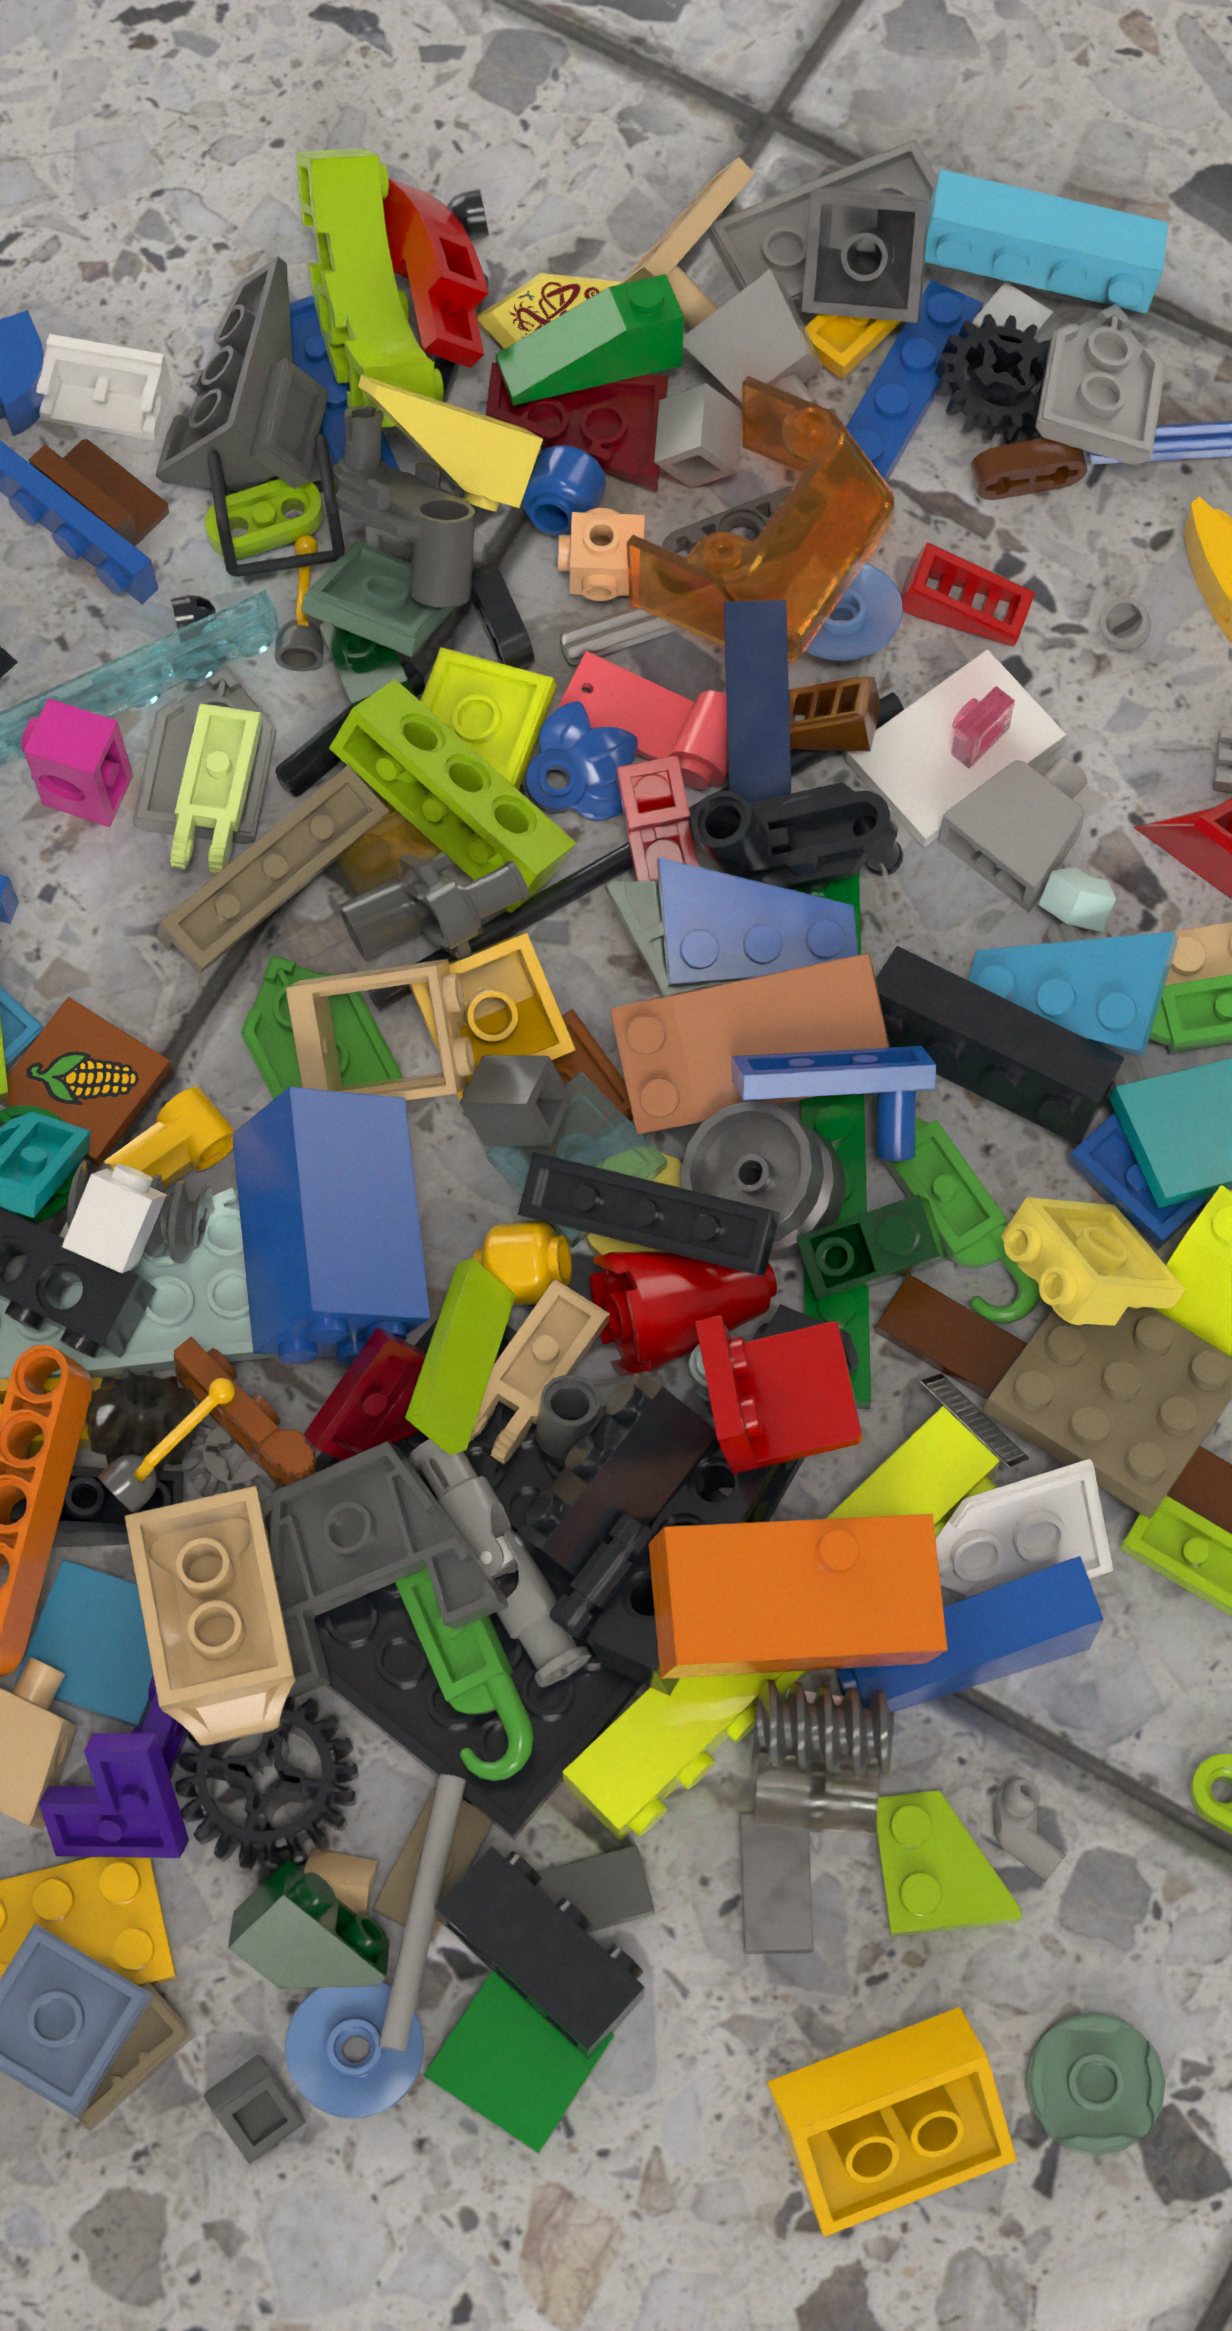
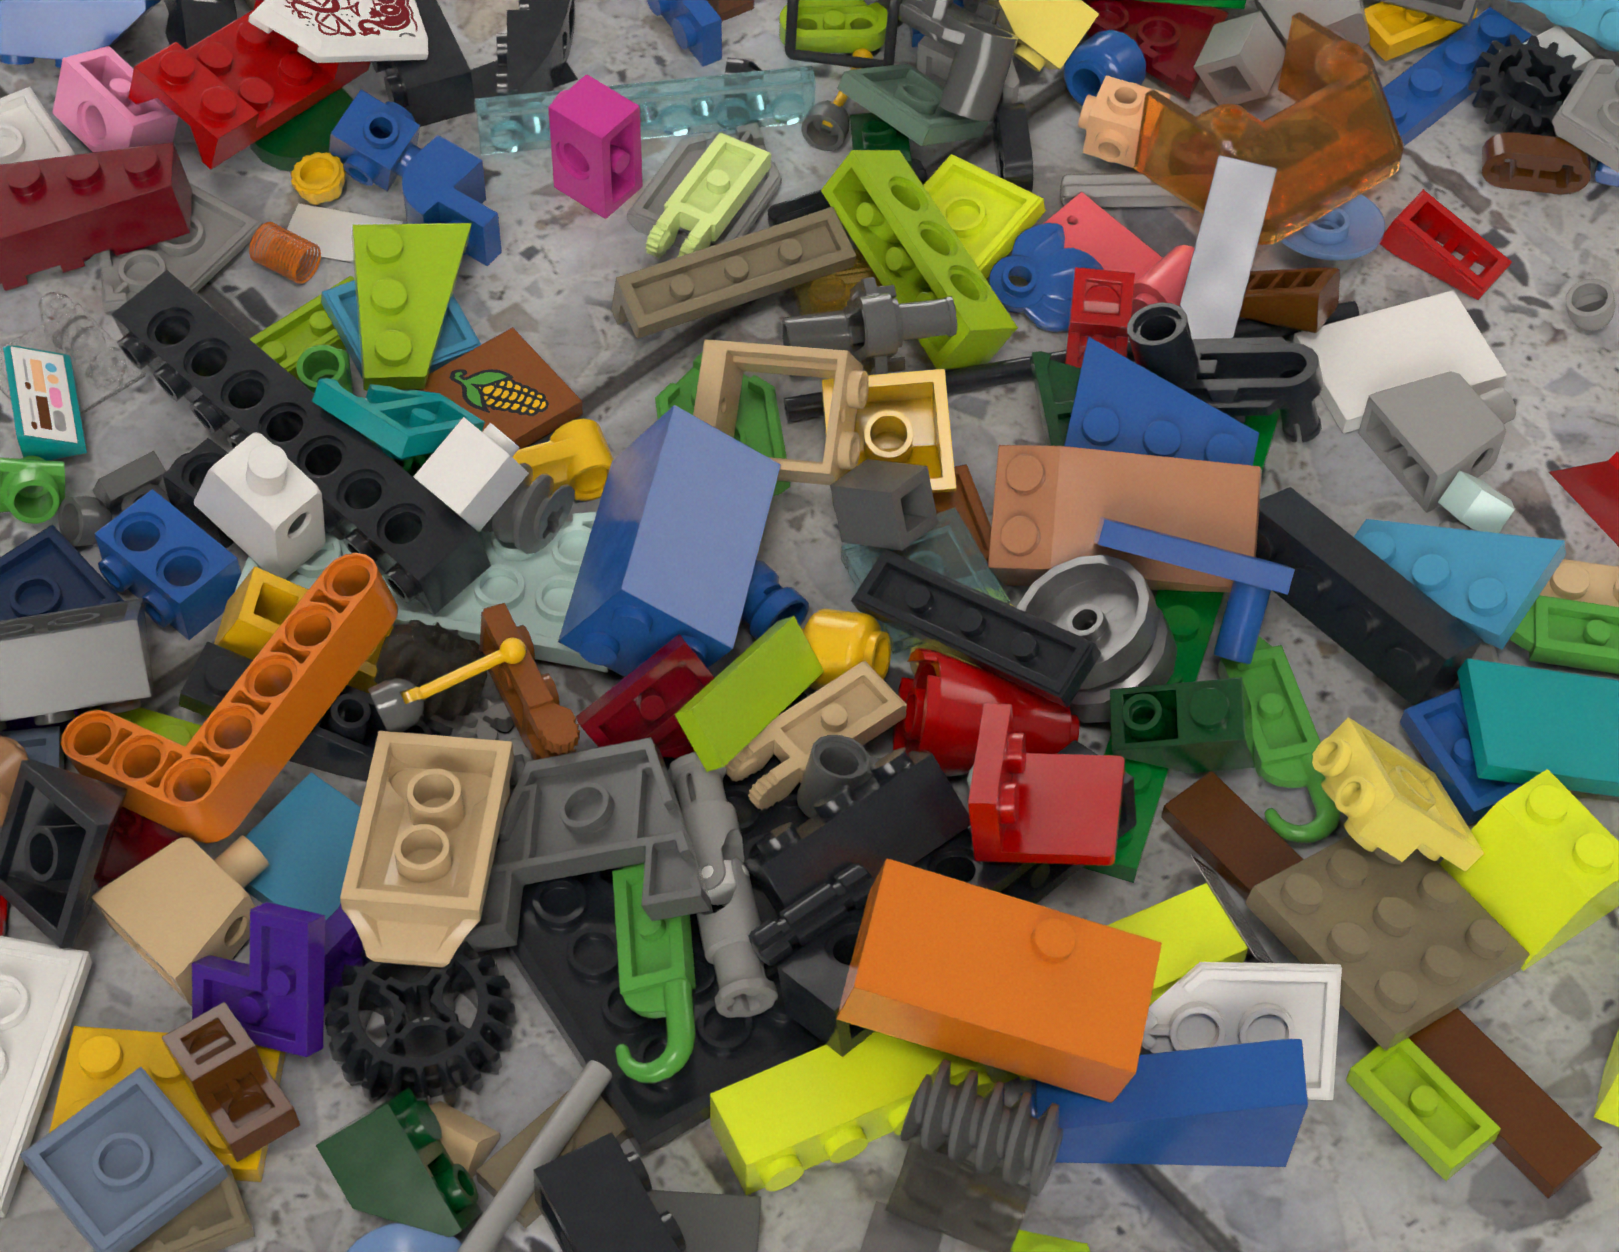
camera: 15 degrees right, 15 degrees down
(120, 1906) = (231, 1081): none -> reddish brown slope
(442, 1236) = (770, 602): none -> blue wheel
(981, 725) = (1428, 338): clear pink plate -> none

